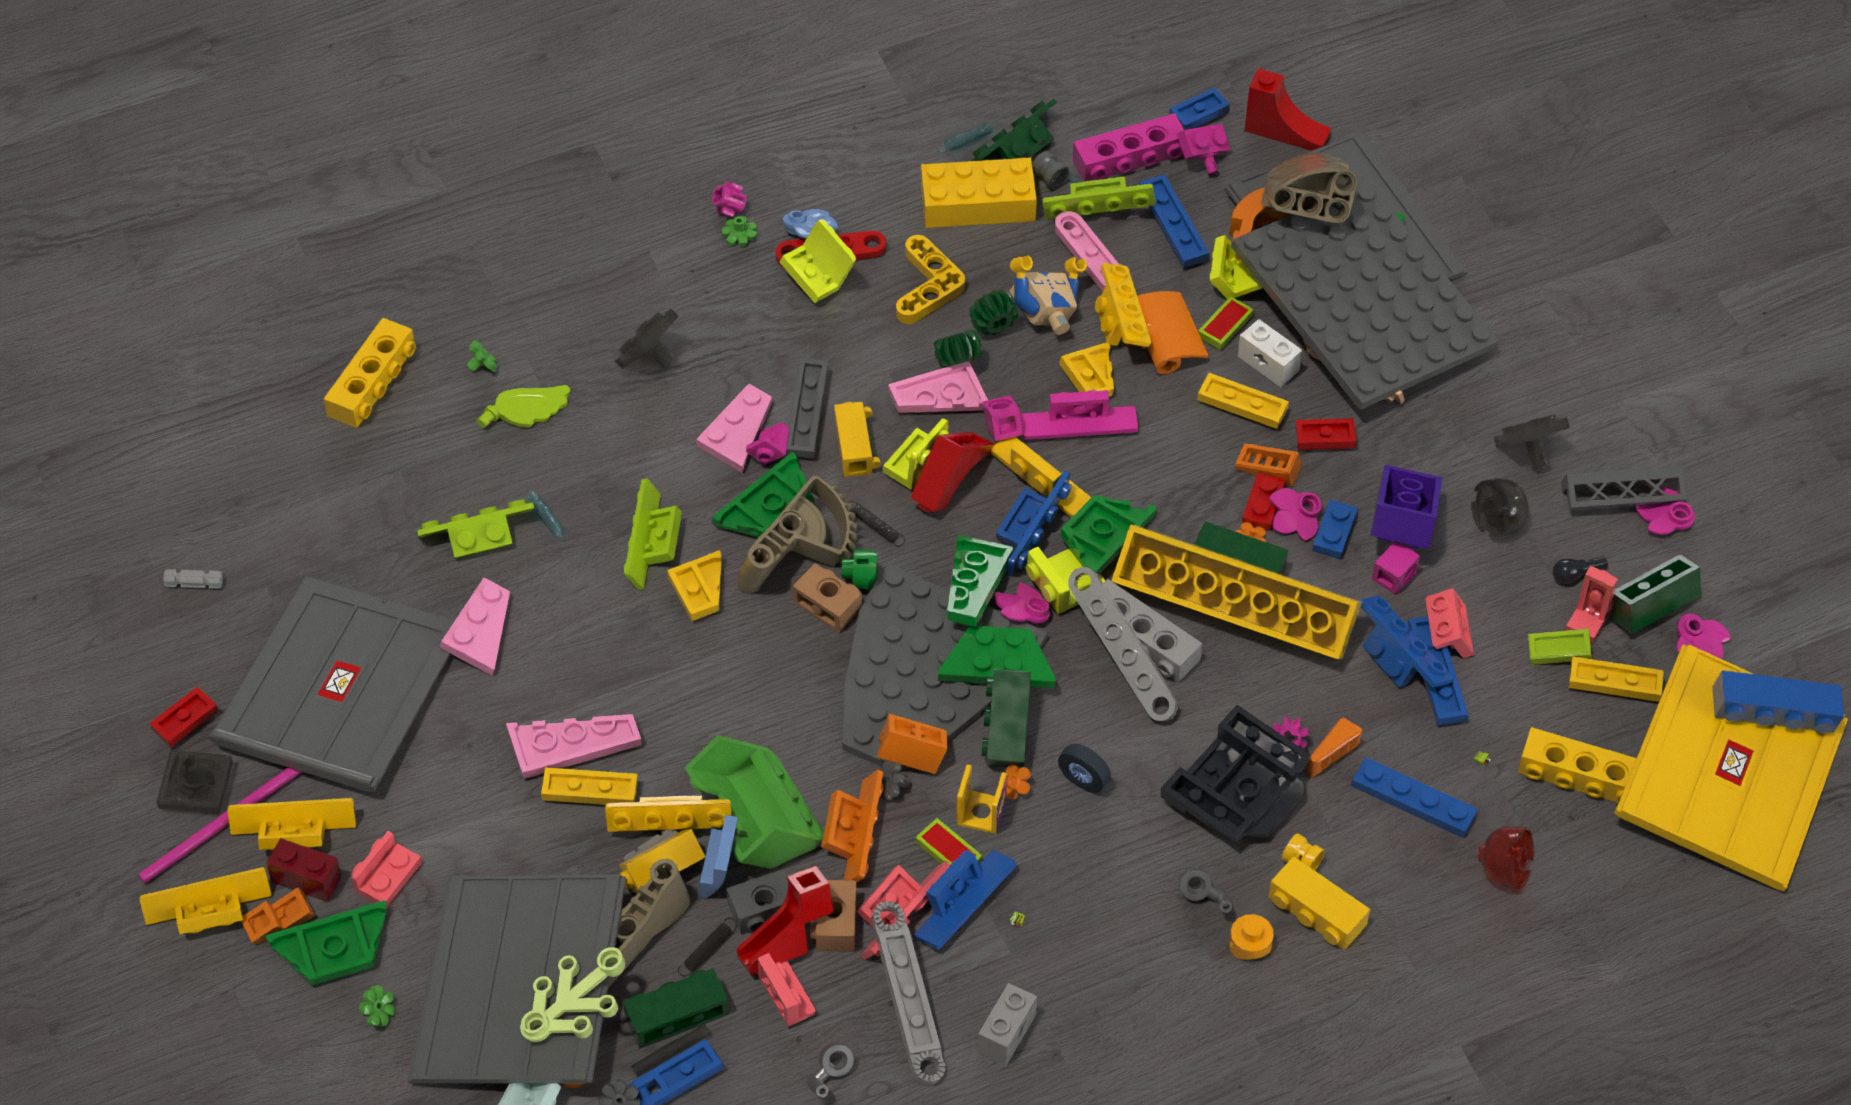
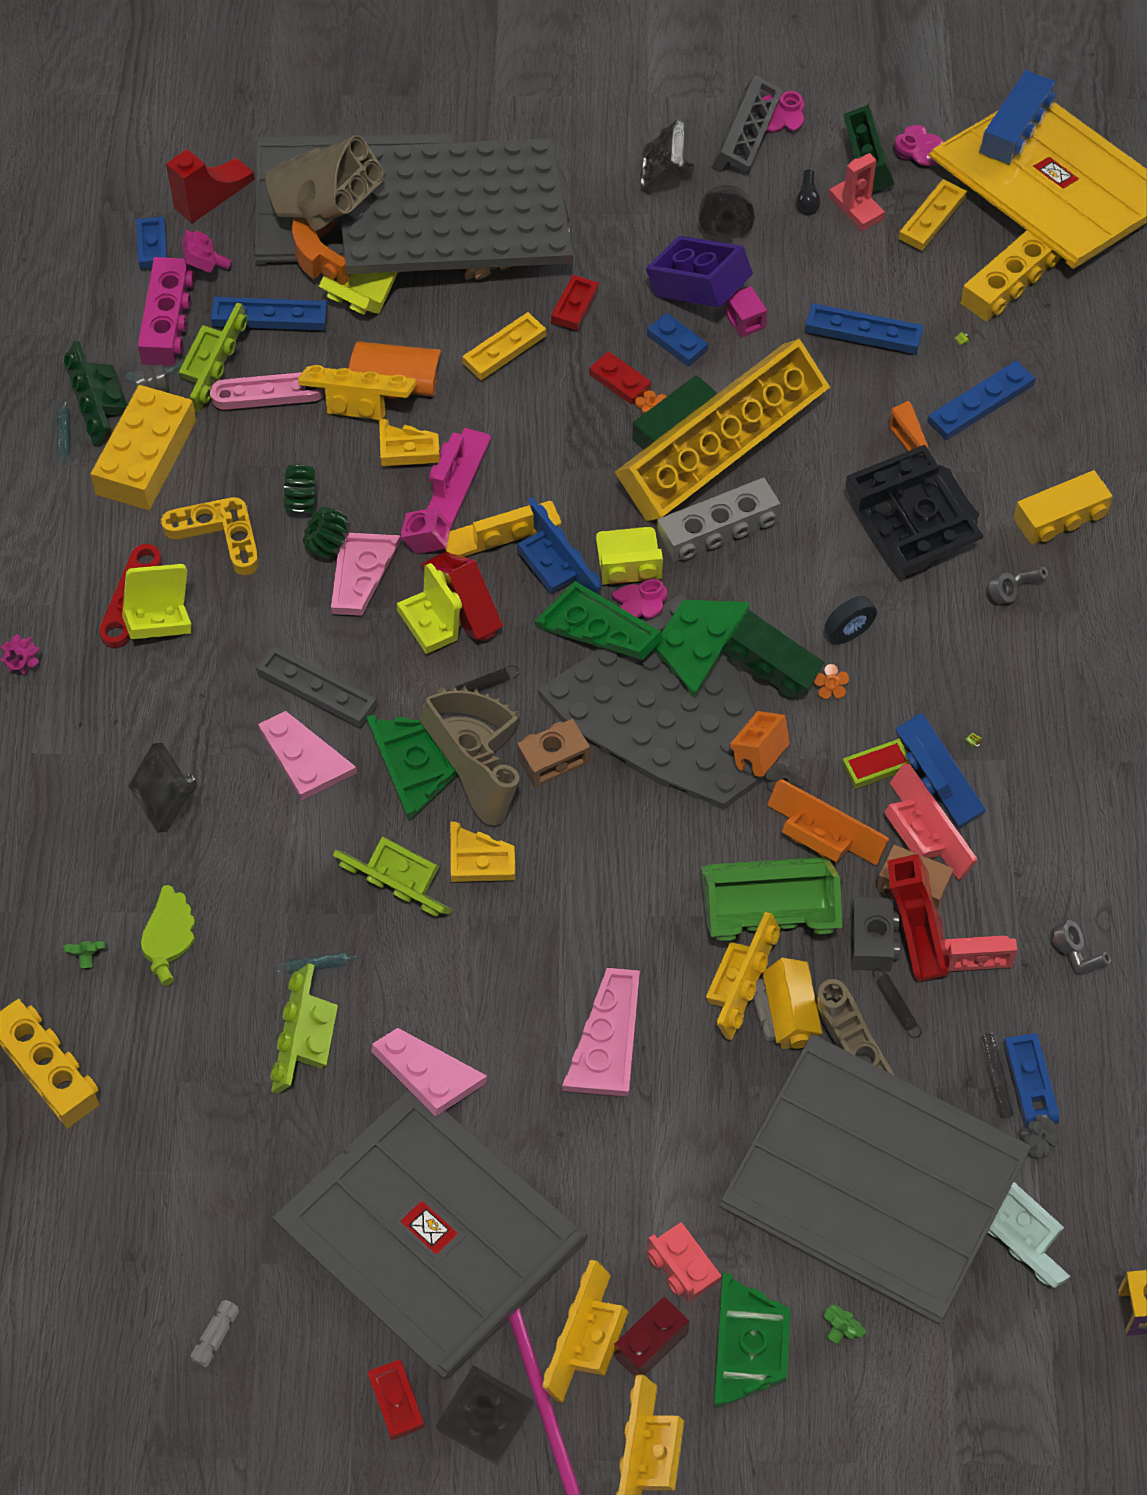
camera: 65 degrees left, 5 degrees up
(283, 914) = (689, 1386): orange slope -> none
(570, 999) = (936, 1132): yellowish green plant -> none
(588, 786) = (670, 1038): yellow plate -> none
(676, 1007) = (957, 1051): dark green brick -> none
(717, 857) = (817, 944): medium blue slope -> none
(739, 231) = (59, 664): bright green plant -> none
(771, 444) = (345, 731): dark pink bracket -> none
(801, 222) = (90, 599): medium blue plate -> none
(854, 439) = (377, 661): yellow brick -> none
(861, 568) = (533, 714): green piece -> none
(908, 993) = (1027, 850): light grey plate -> none
(969, 799) = (852, 713): yellow piece -> none
(1007, 1024) = (1090, 786): light grey brick -> none
(1047, 296) = (305, 438): torso -> none
(1100, 530) = (594, 506): green wing -> none
(1123, 644) = (733, 536): light grey plate -> none
(1225, 323) = (407, 323): tile -> none
(1251, 937) = (1075, 567): light orange piece -> none
(1269, 353) = (466, 303): white brick -> none
(1287, 468) = (588, 338): orange slope -> none
(1293, 515) = (648, 357): dark pink plate -> none
(1294, 728) = (882, 451): dark pink gear -> none
(1303, 851) = (1005, 500): yellow wheel -> none
(1398, 648) = (839, 343): blue bracket -> none
(1449, 622) = (825, 297): coral bracket -> none
(1506, 856) = (1078, 357): clear red cylinder -> none
(1559, 646) = (881, 237): lime tile -> none

